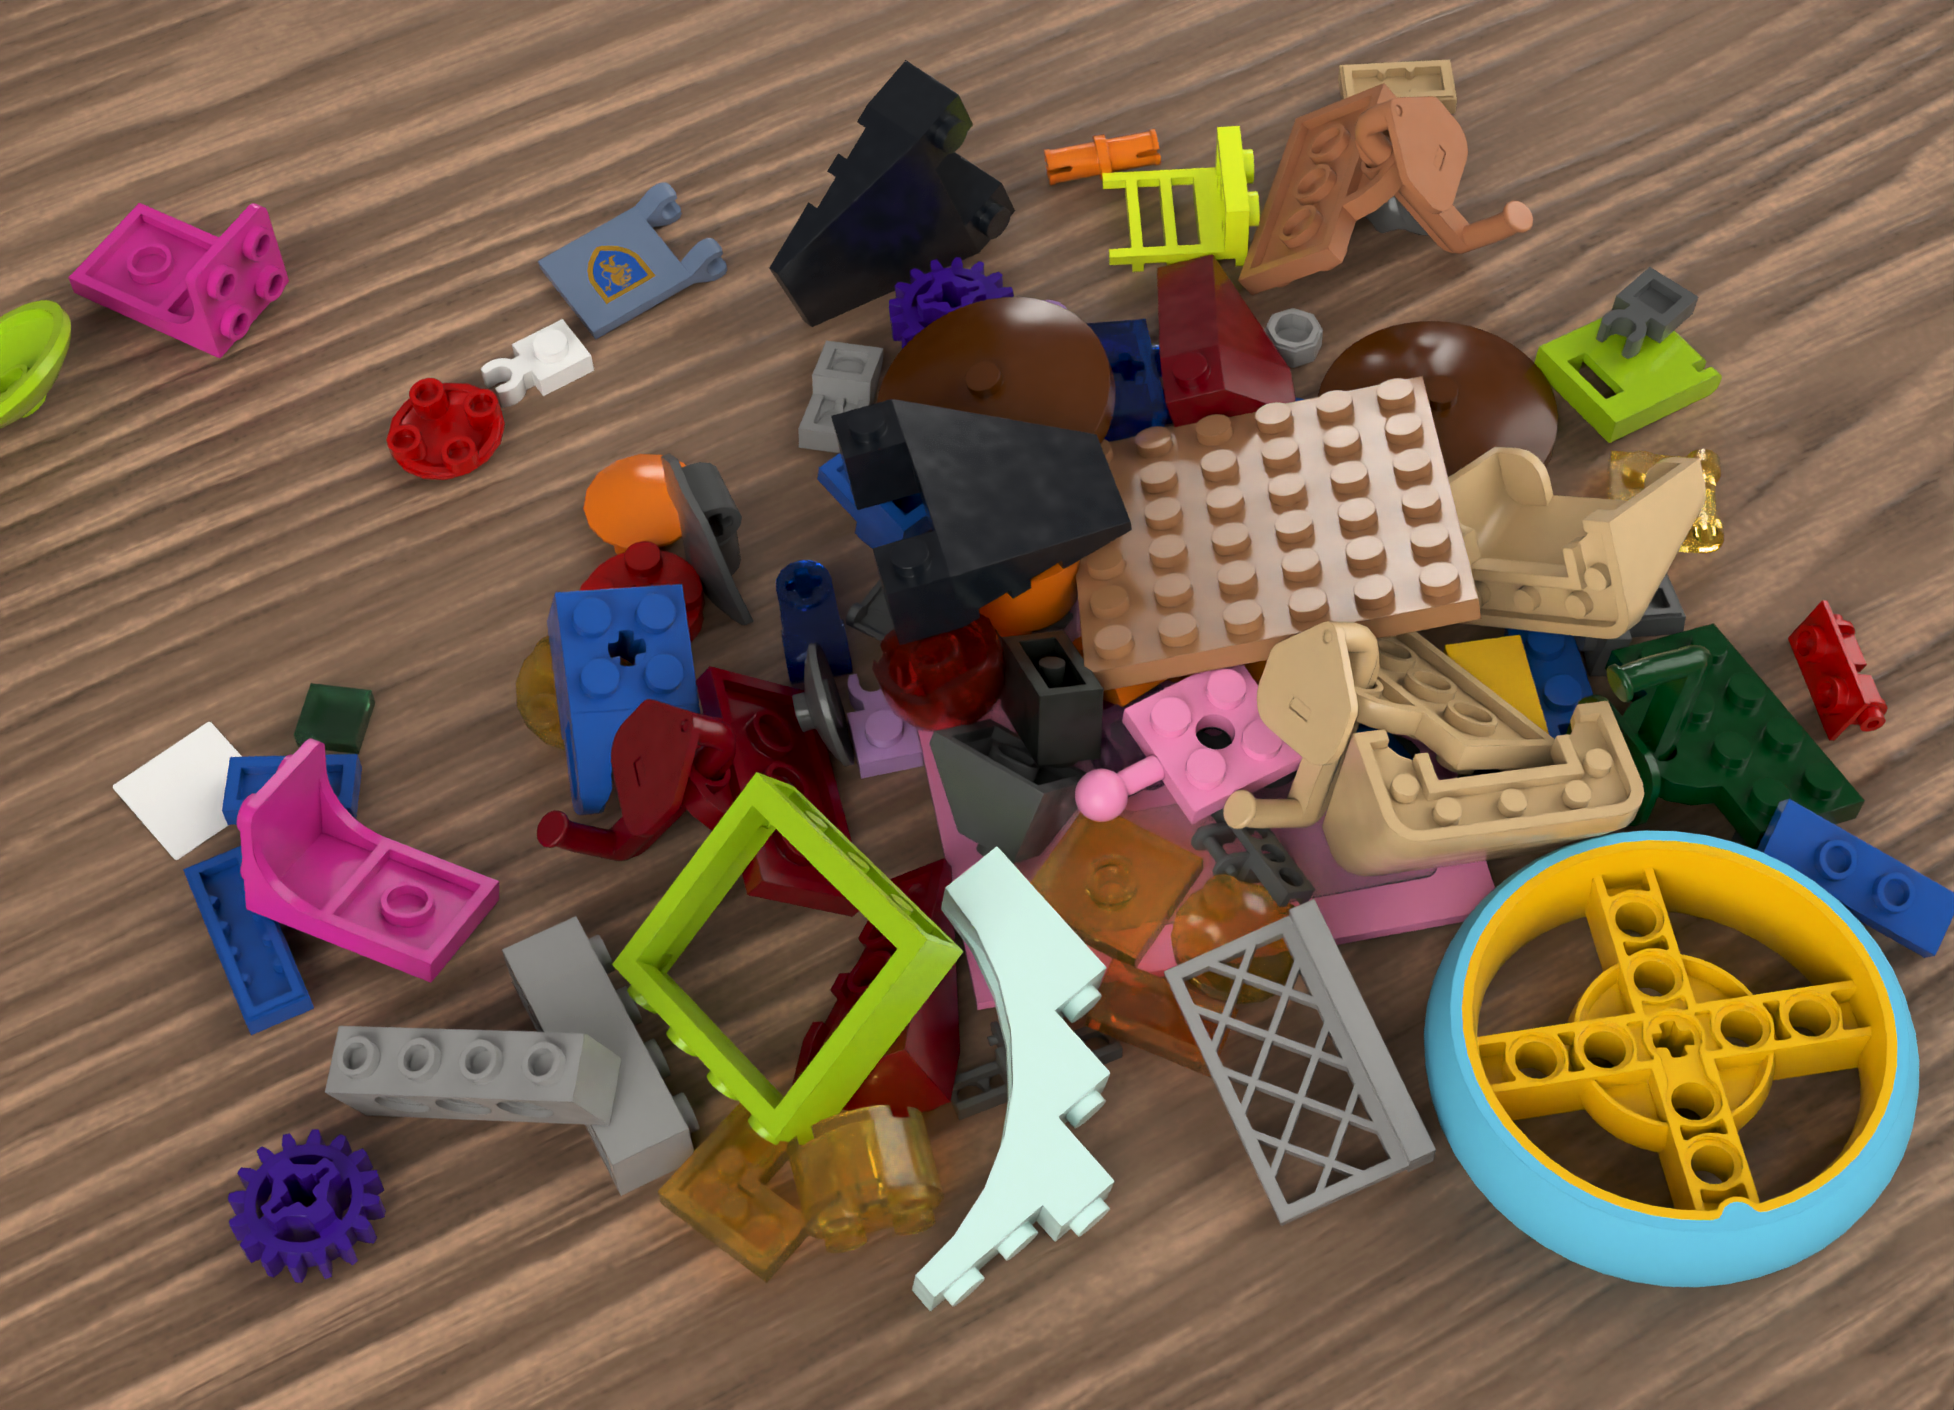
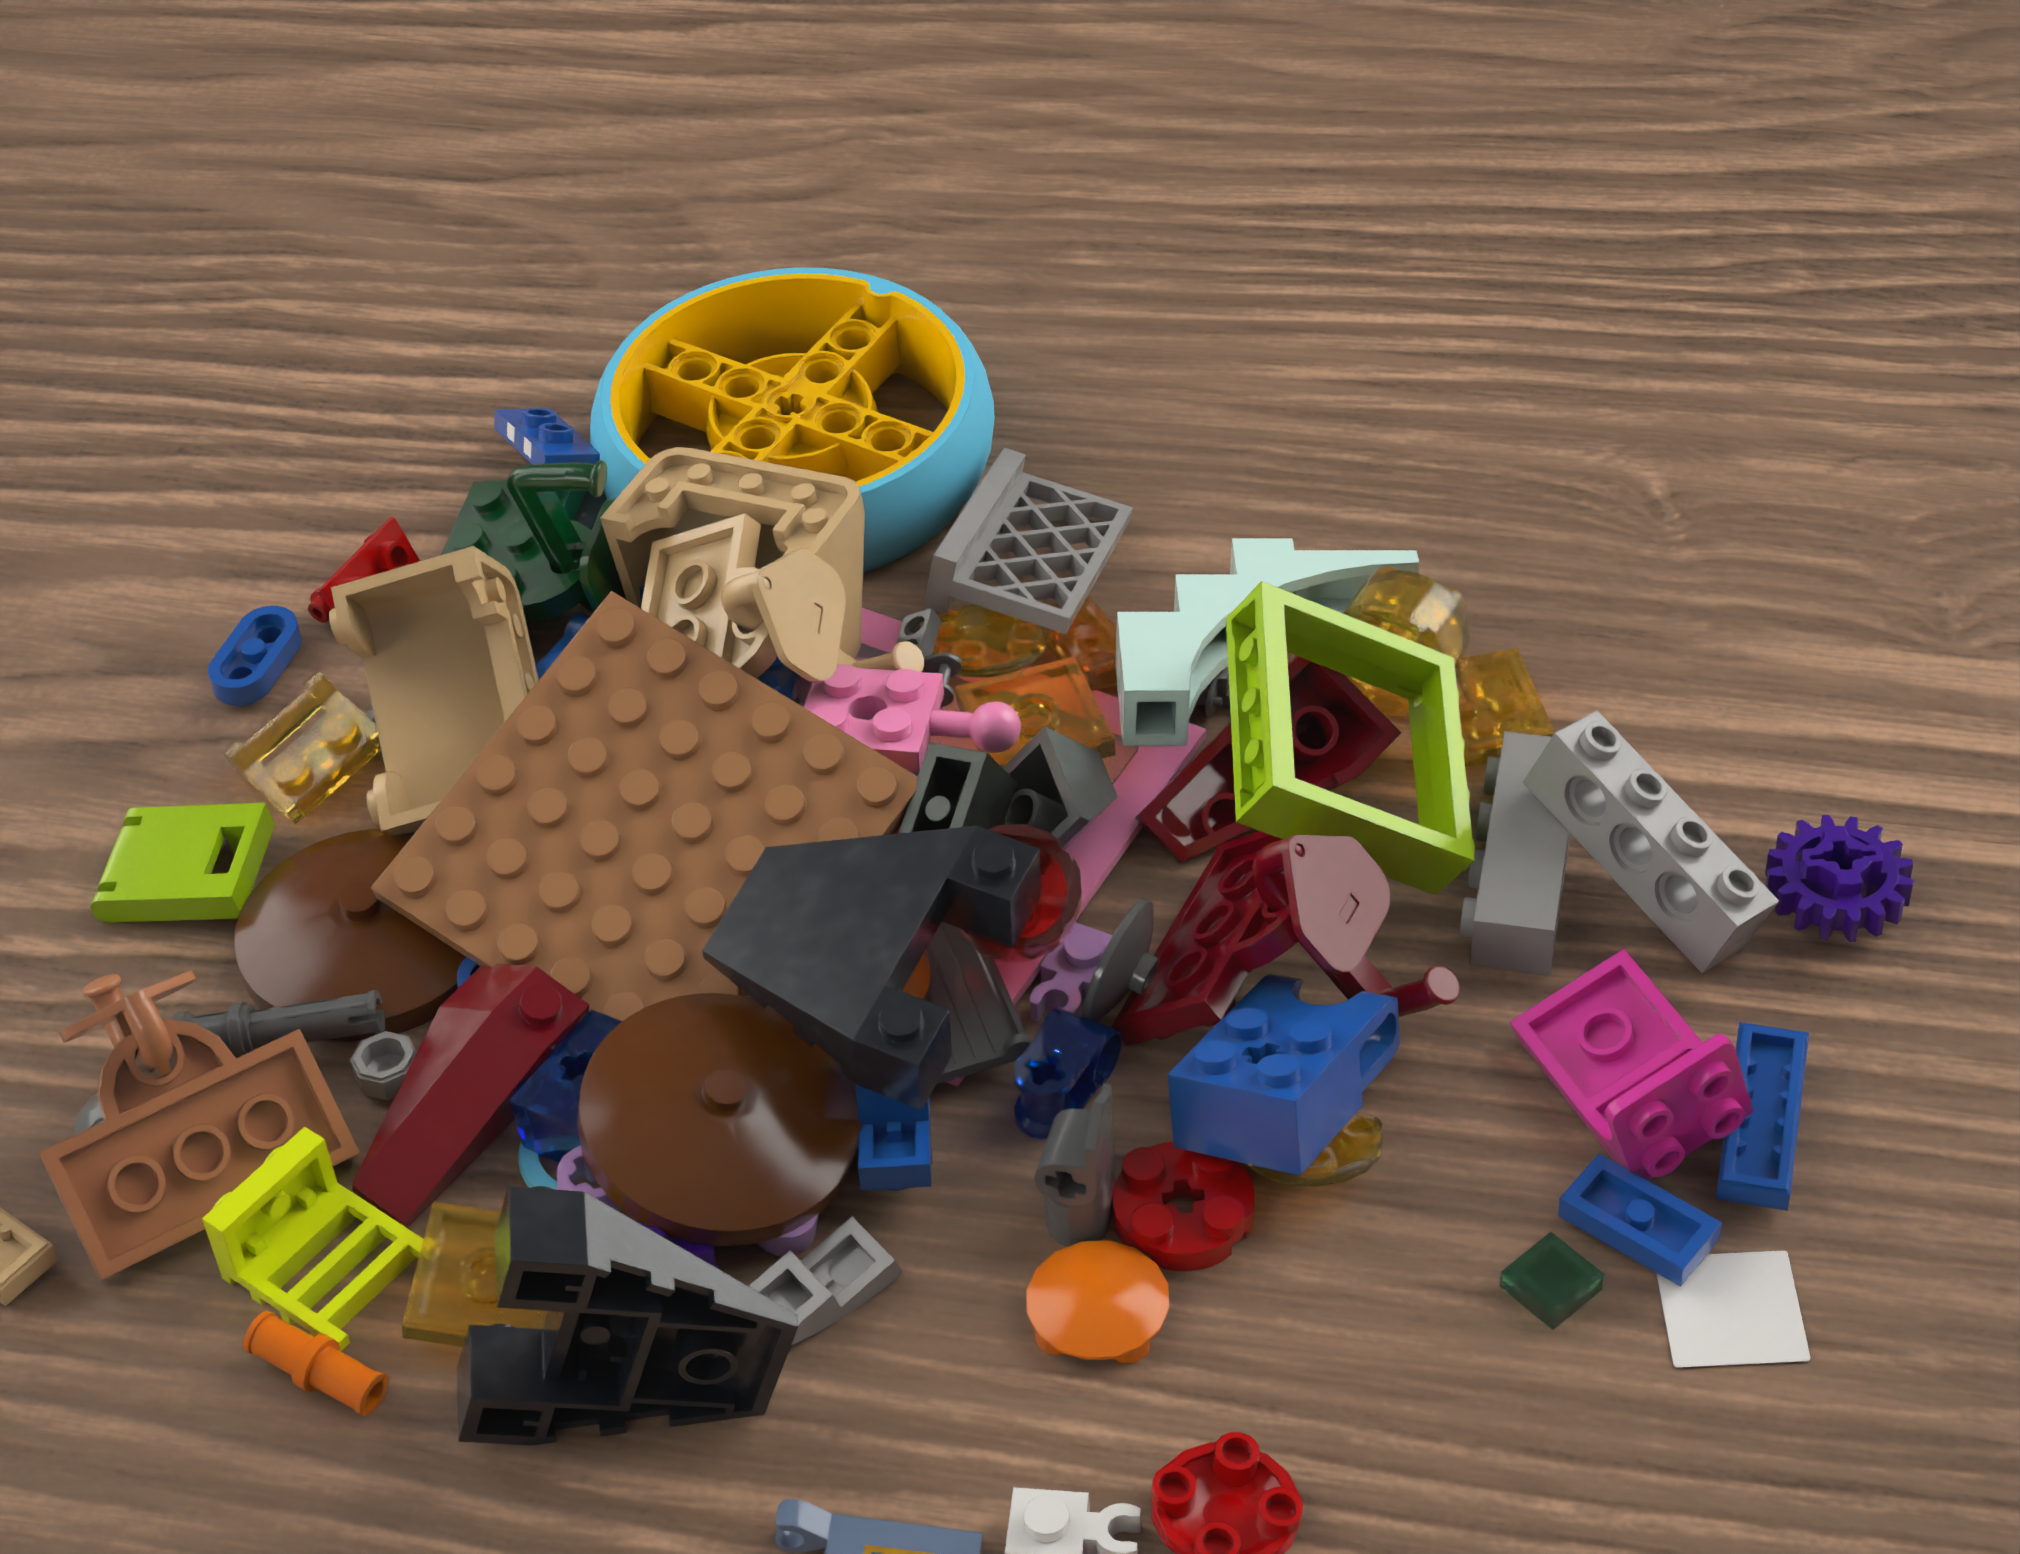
camera: 140 degrees left, 10 degrees down
(1056, 255) = (458, 1279): none -> clear yellow plate
(1346, 332) = (248, 1029): none -> dark grey pin
(1647, 307) = (118, 856): dark grey plate -> none
(1820, 553) = (254, 655): none -> blue plate

